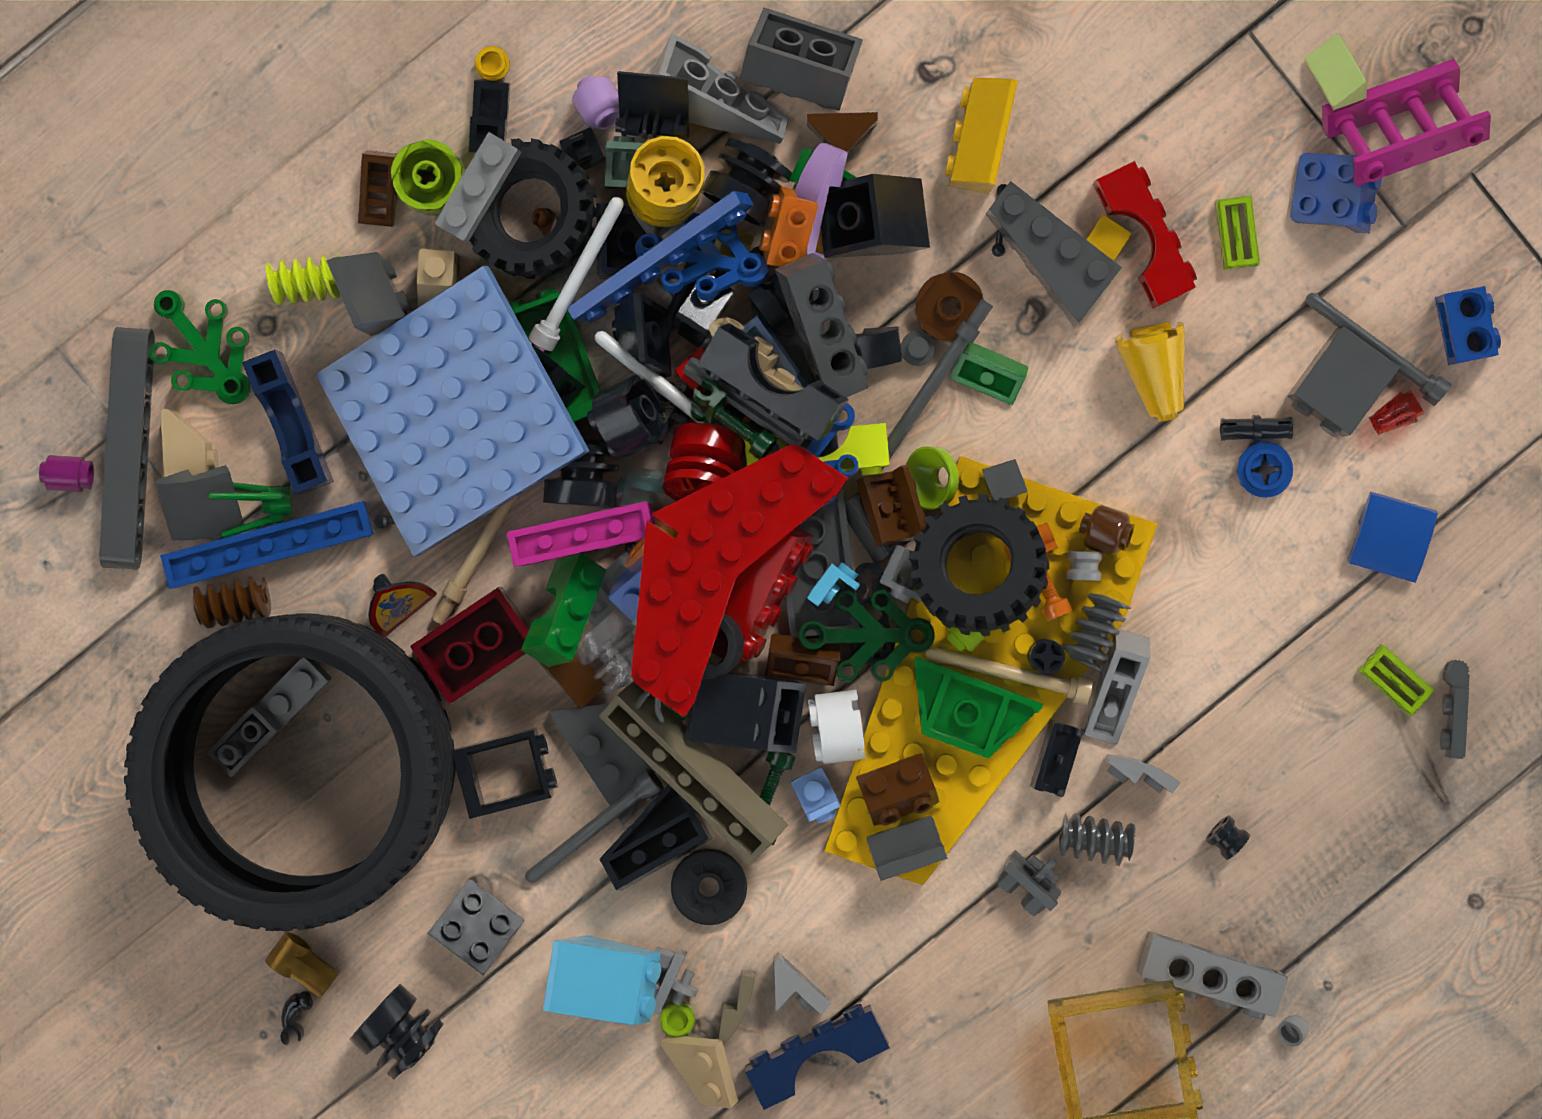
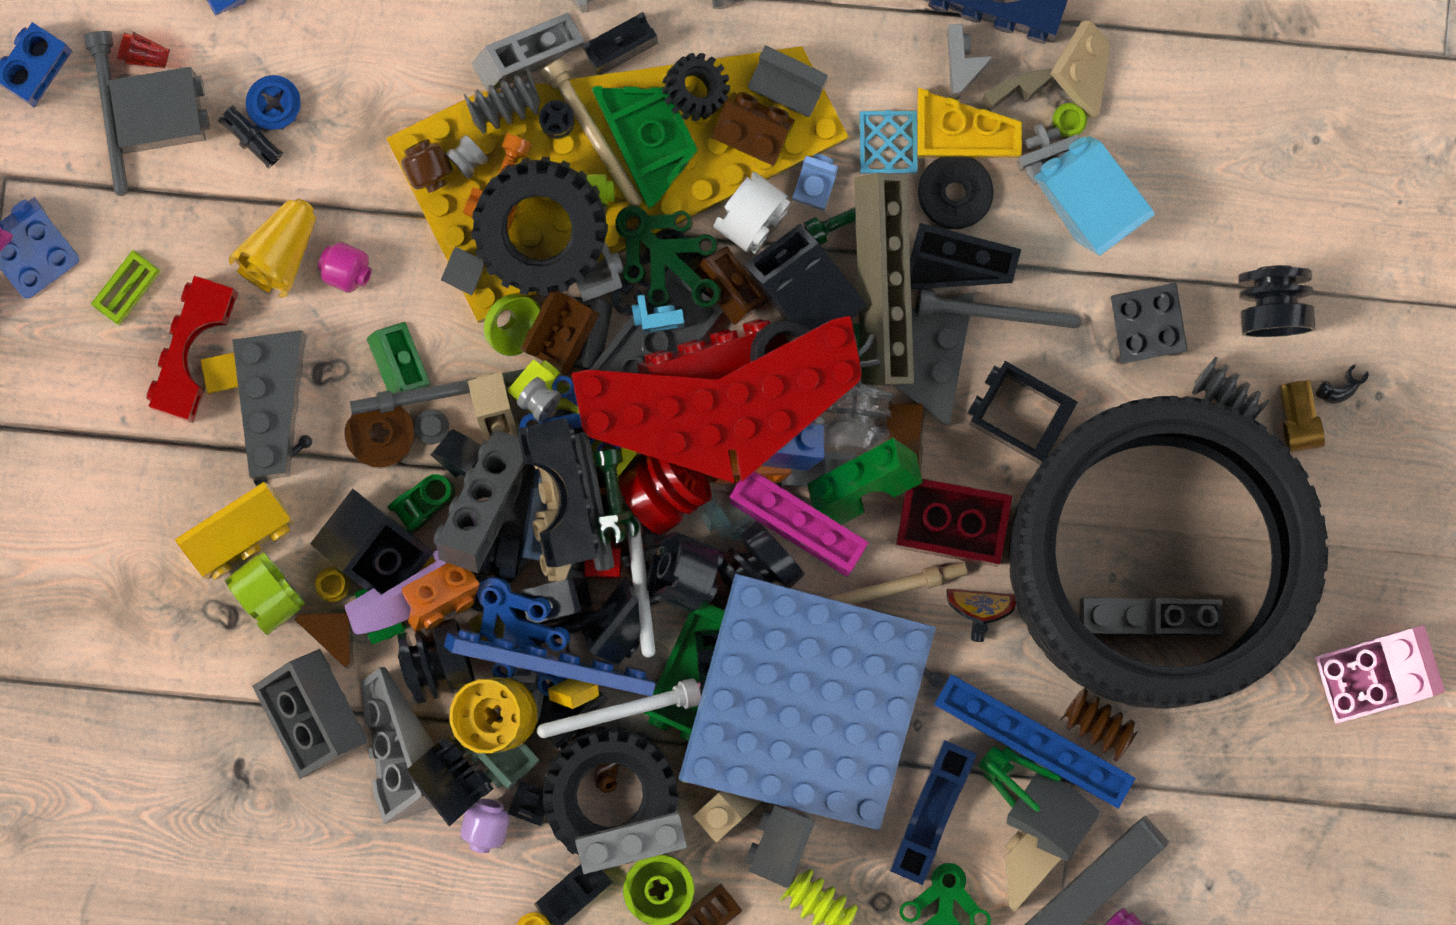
camera: 130 degrees left, 5 degrees down
(67, 834) = (1380, 674): none -> bright pink slope
(369, 931) = (1226, 392): none -> dark grey piece
(623, 252) = (573, 693): none -> yellow tile
(749, 934) = (961, 130): none -> yellow wing
(773, 856) = (888, 115): none -> medium azure window
(854, 438) = (539, 399): none -> light grey wheel
(871, 282) = (421, 503): none -> green piece
(877, 162) = (332, 584): none -> yellow plate
(886, 404) = (492, 404): none -> tan slope
(917, 109) = (264, 593): none -> lime brick
(964, 796) = (708, 74): none -> black tyre
(1094, 400) = (344, 267): none -> dark pink head

